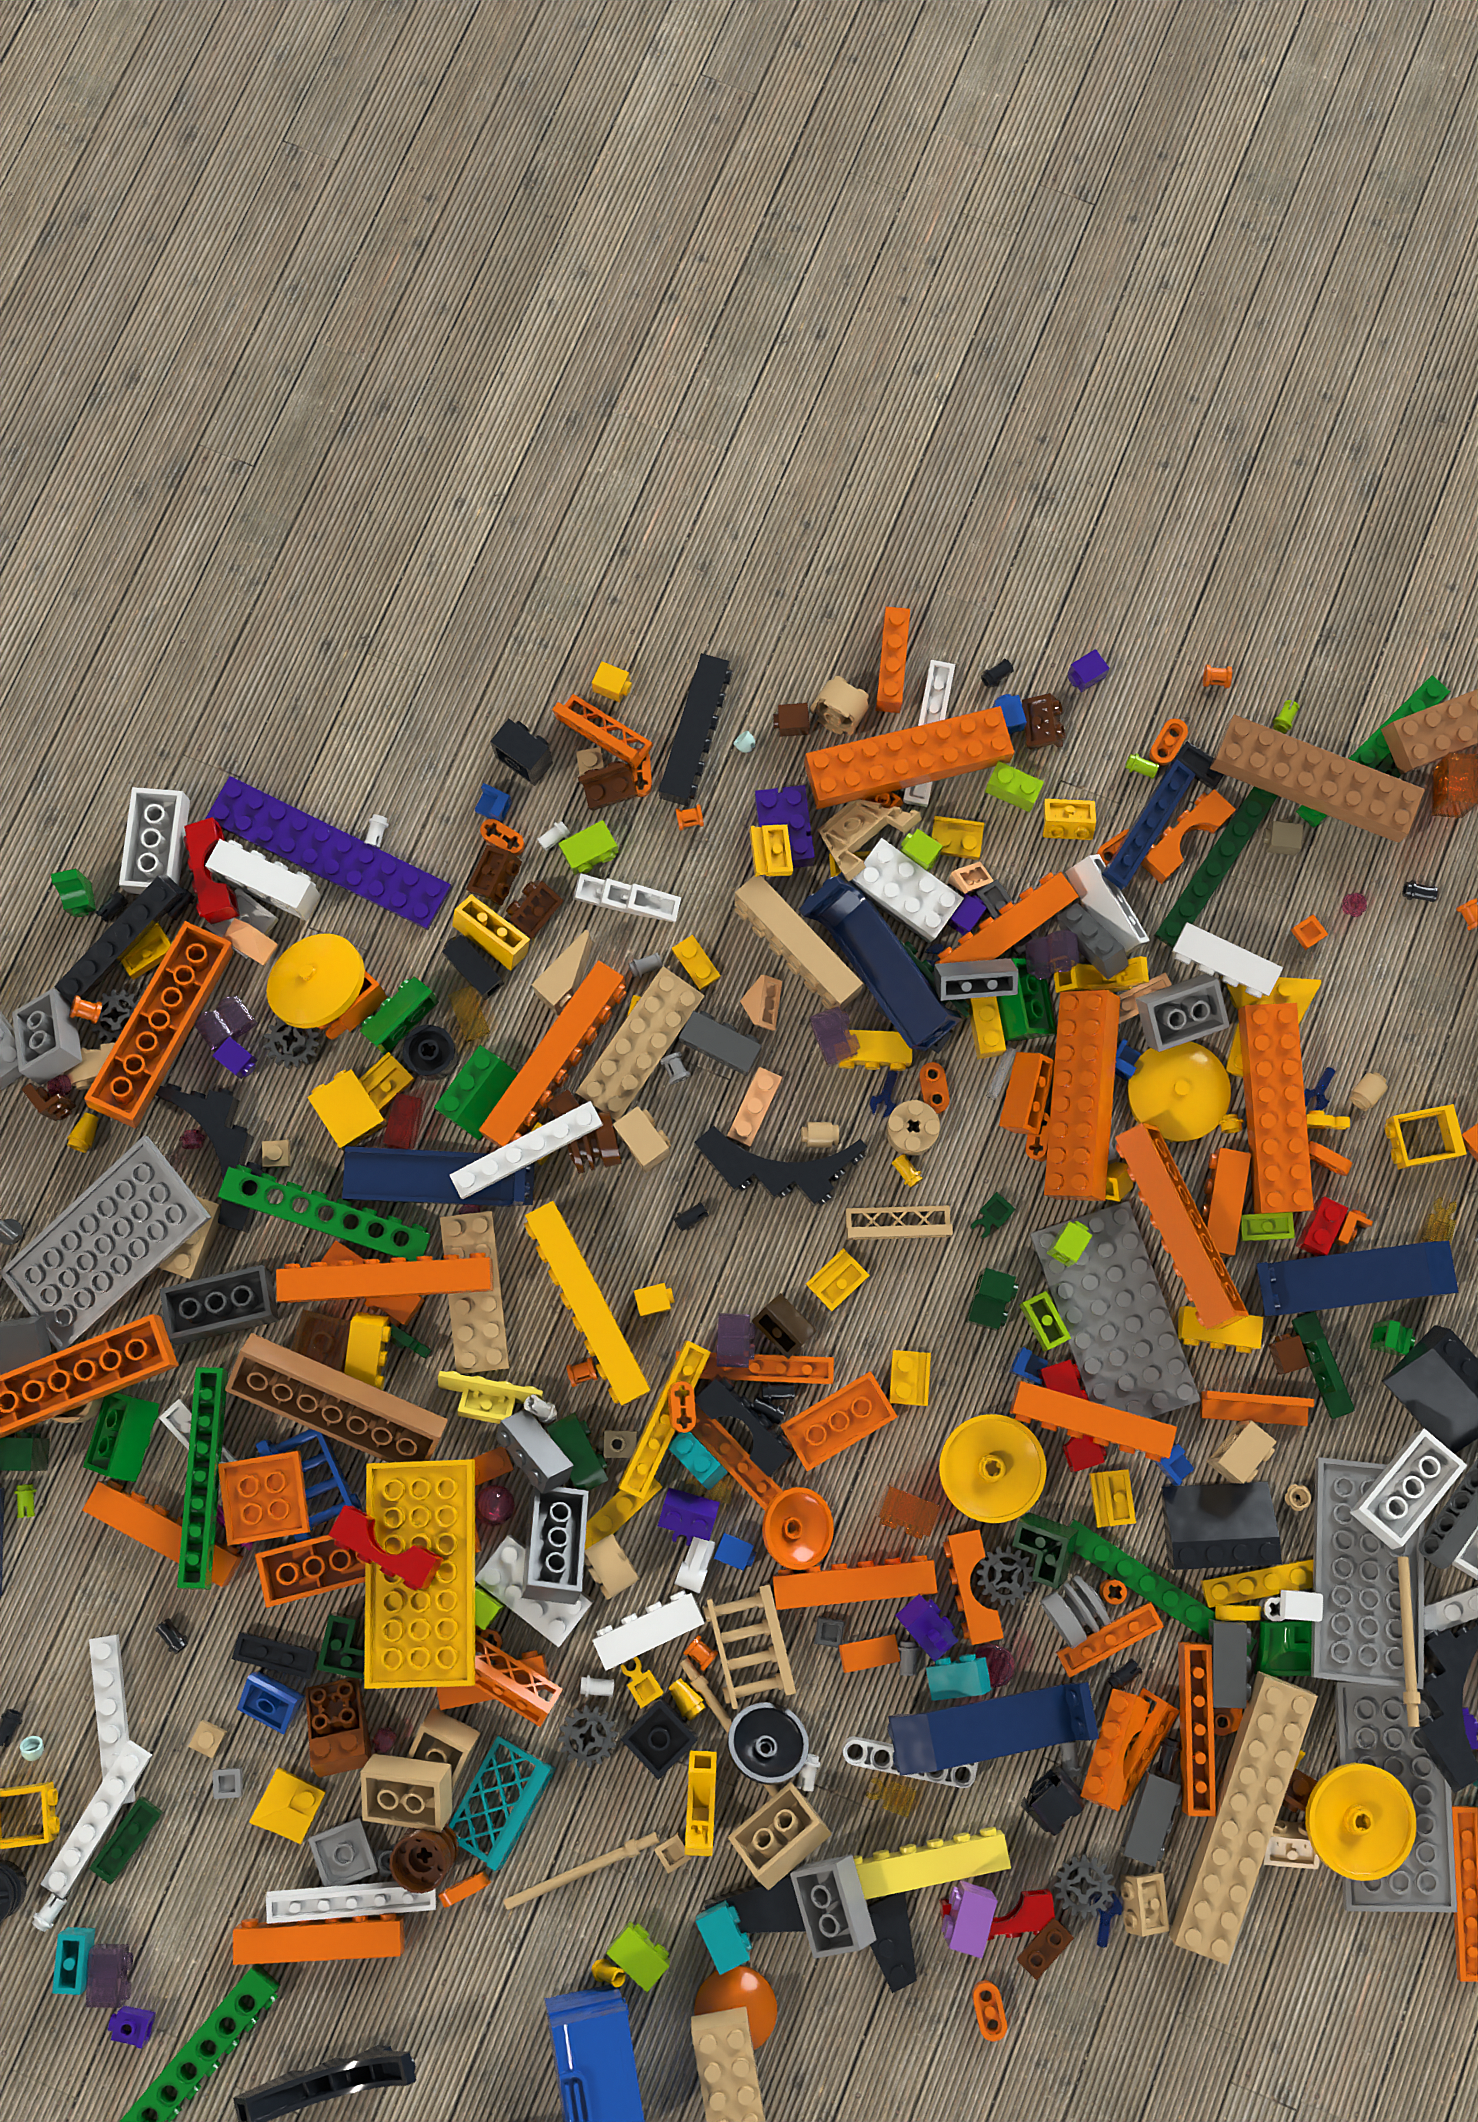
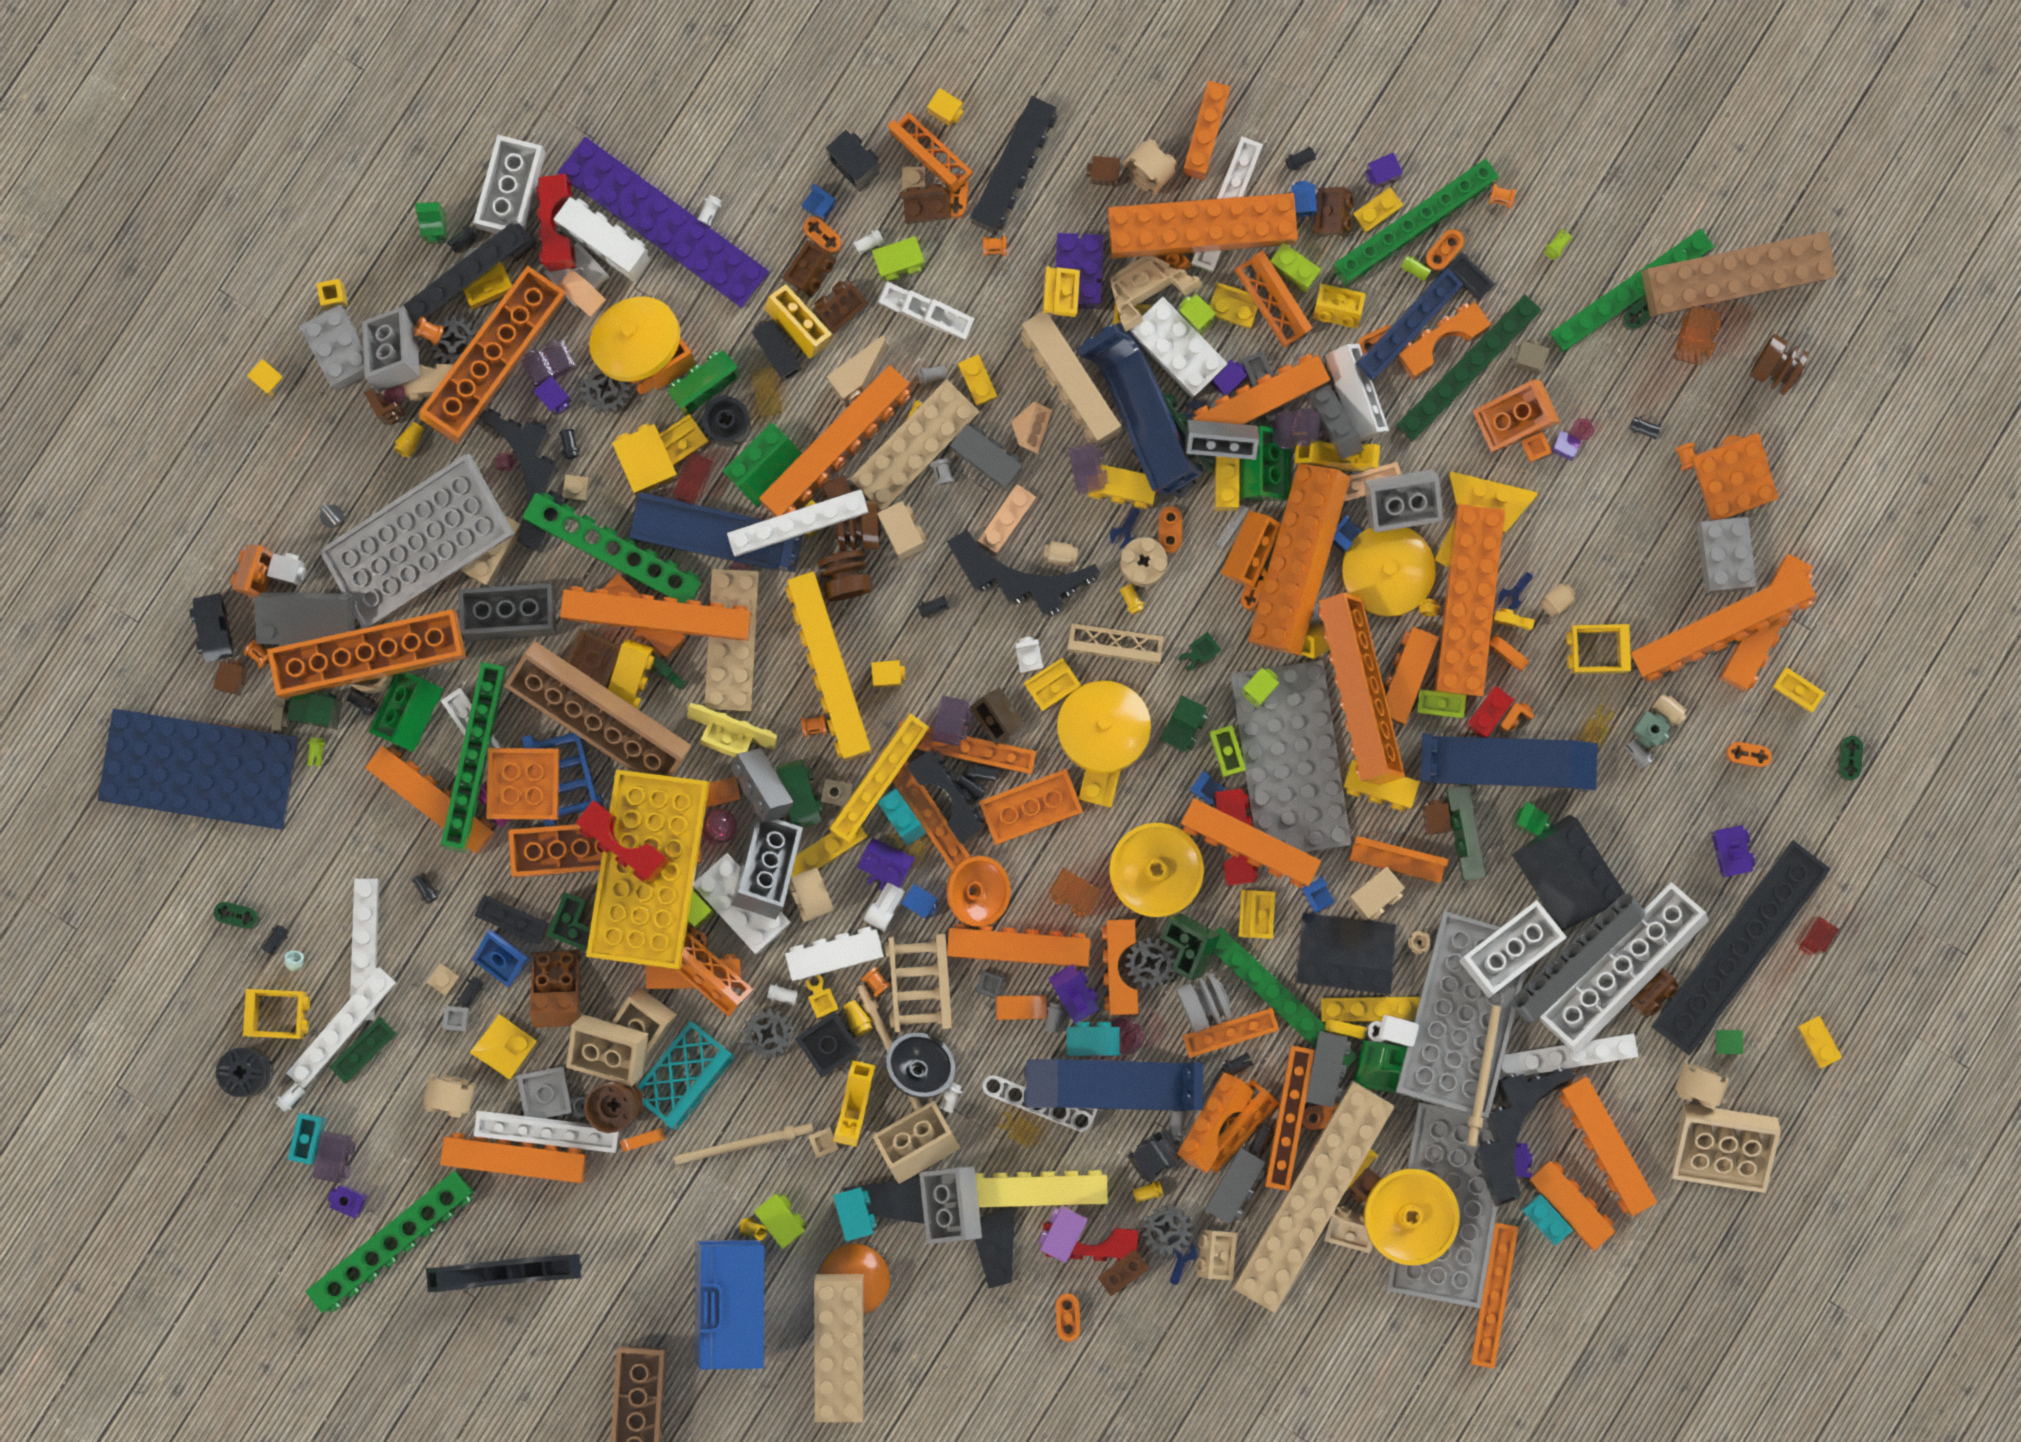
camera: 15 degrees right, 5 degrees up
(74, 1436) = (362, 702): none -> black pin
(231, 1878) = (449, 1094): none -> tan brick
(239, 1751) = (471, 991): none -> black pin
(263, 1112) = (569, 444): none -> black pin
(384, 1739) = (593, 1006): clear pink plate -> none
(545, 1411) = (776, 754): white pin -> none
(589, 1203) = (845, 576): none -> reddish brown wheel
(675, 1407) = (901, 769): orange beam -> none
(745, 742) = (1057, 184): light aqua hinge -> none
(805, 1251) = (1028, 655): none -> white bracket
(903, 1317) = (1103, 726): none -> yellow dish
(970, 878) = (1239, 345): light nougat slope -> none
(1005, 818) = (1277, 292): none -> orange fence
(1052, 1843) = (1149, 1191): none -> yellow pin
(1089, 713) = (1378, 210): none -> yellow plate
(1120, 1590) = (1248, 994): orange bush -> none
(1132, 718) = (1415, 222): none -> green brick
(1227, 960) = (1451, 460): white brick -> none
(1281, 902) = (1516, 415): none -> orange slope
(1317, 779) = (1569, 308): medium nougat brick -> none
(1340, 925) = (1566, 445): none -> slope

